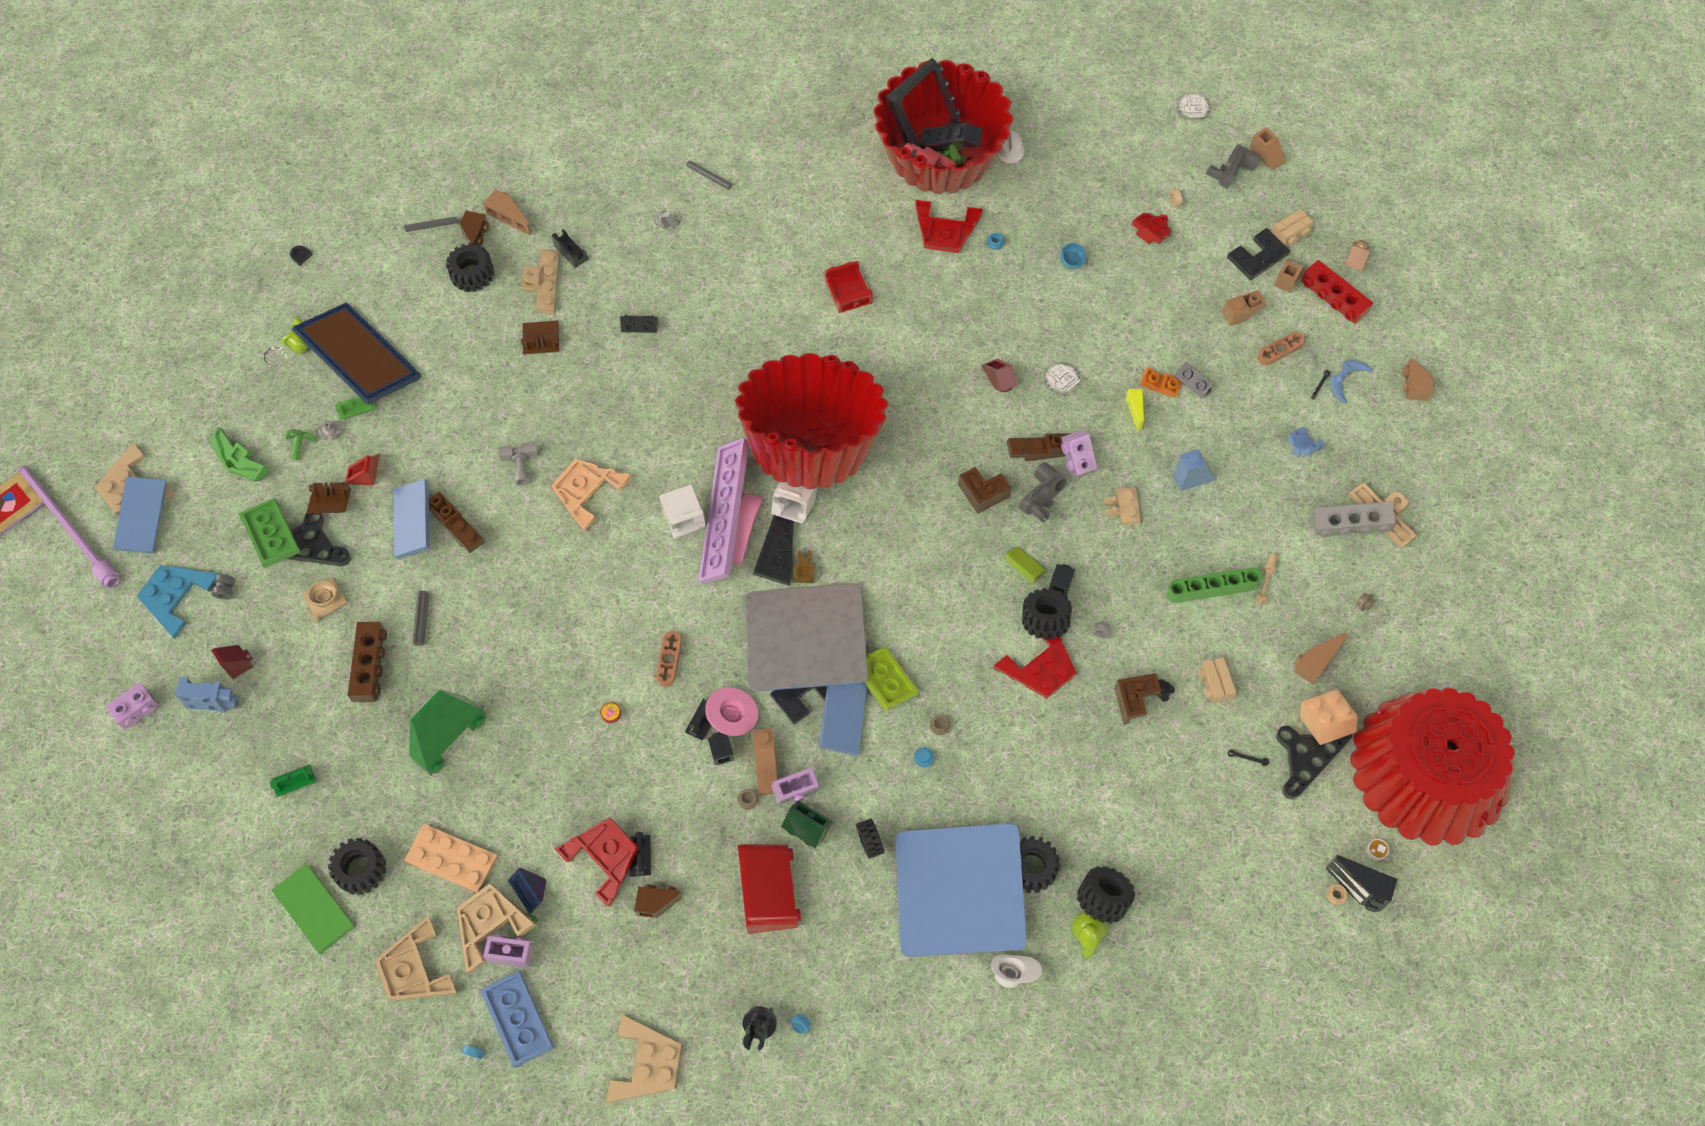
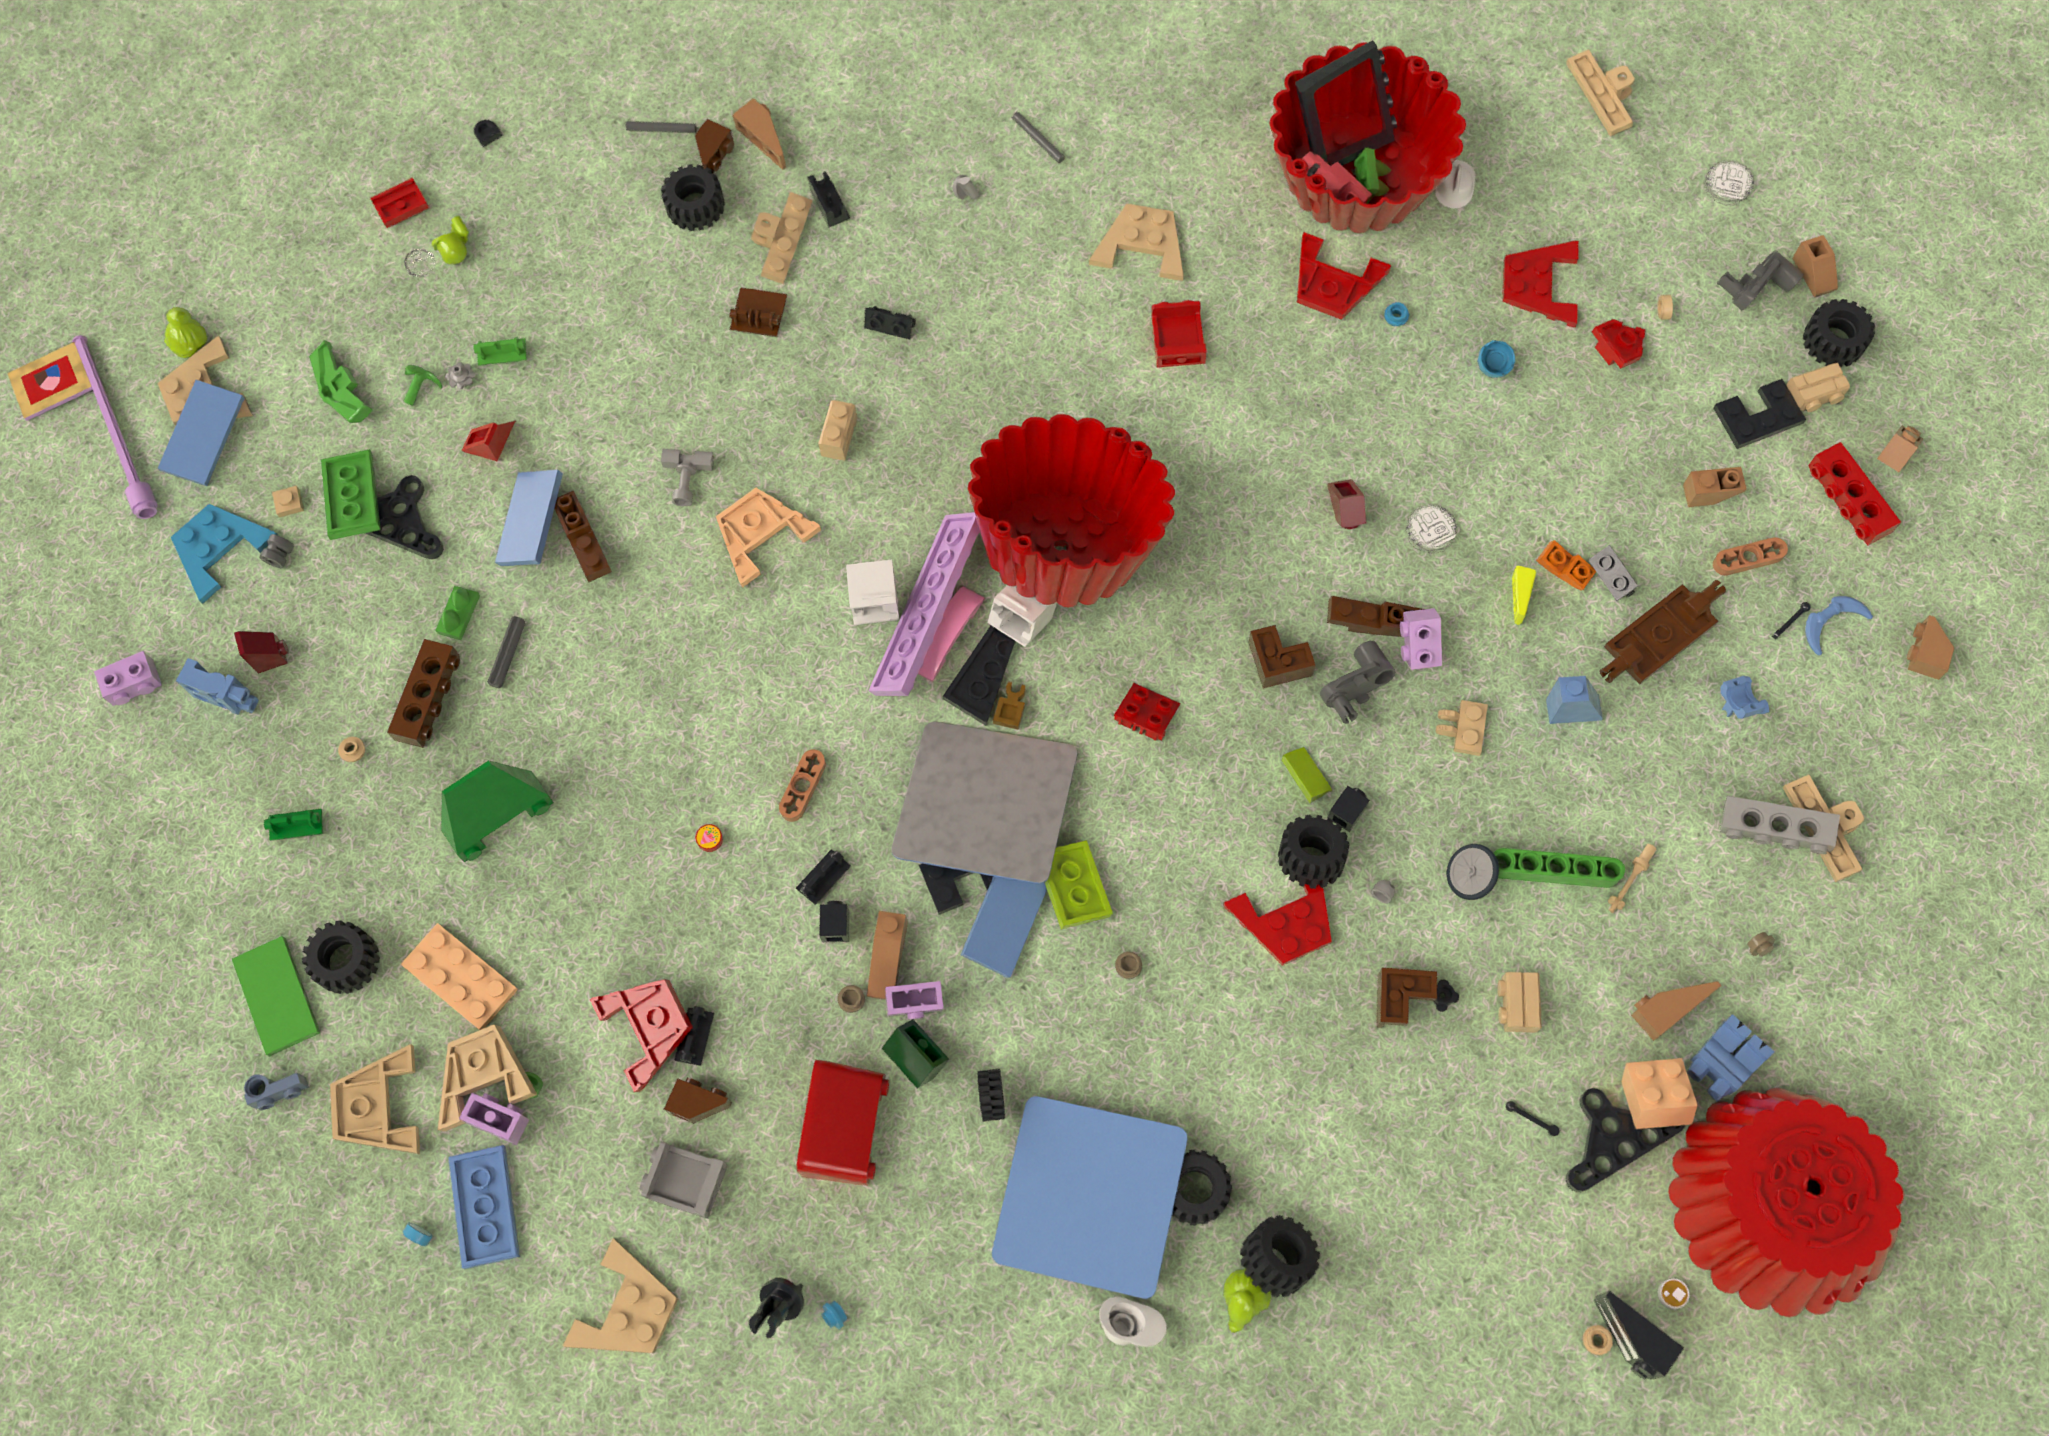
camera: 20 degrees right, 5 degrees up
(105, 446) = (183, 333): none -> lime hair
(221, 549) = (288, 501): none -> tan plate
(247, 318) = (399, 203): none -> red plate
(323, 720) = (354, 755): none -> tan plate
(324, 598) = (395, 596): tan hat -> none
(328, 499) = (434, 466): reddish brown hinge -> none
(340, 973) = (285, 1088): none -> sand blue plate
(356, 353) = (520, 281): reddish brown door -> none
(375, 599) = (457, 613): none -> bright green tile
(528, 887) = (544, 1041): dark blue slope -> none
(623, 405) = (838, 430): none -> tan brick
(662, 959) = (683, 1180): none -> light grey panel
(731, 711) = (861, 877): bright pink hat -> none
(804, 223) = (1142, 231): none -> tan wing
(901, 547) = (1146, 710): none -> red hinge
(924, 757) = (1095, 1003): dark azure plate -> none
(958, 134) = (1373, 155): black arch -> none
(1079, 199) = (1529, 281): none -> red wing
(1092, 64) = (1603, 90): none -> tan plate
(1159, 601) = (1472, 871): none -> light grey wheel
(1238, 412) = (1662, 633): none -> reddish brown plate
(1289, 275) = (1793, 453): medium nougat slope -> none
(1299, 179) = (1850, 320): none -> black tyre
(1364, 689) = (1722, 1066): none -> medium blue hips

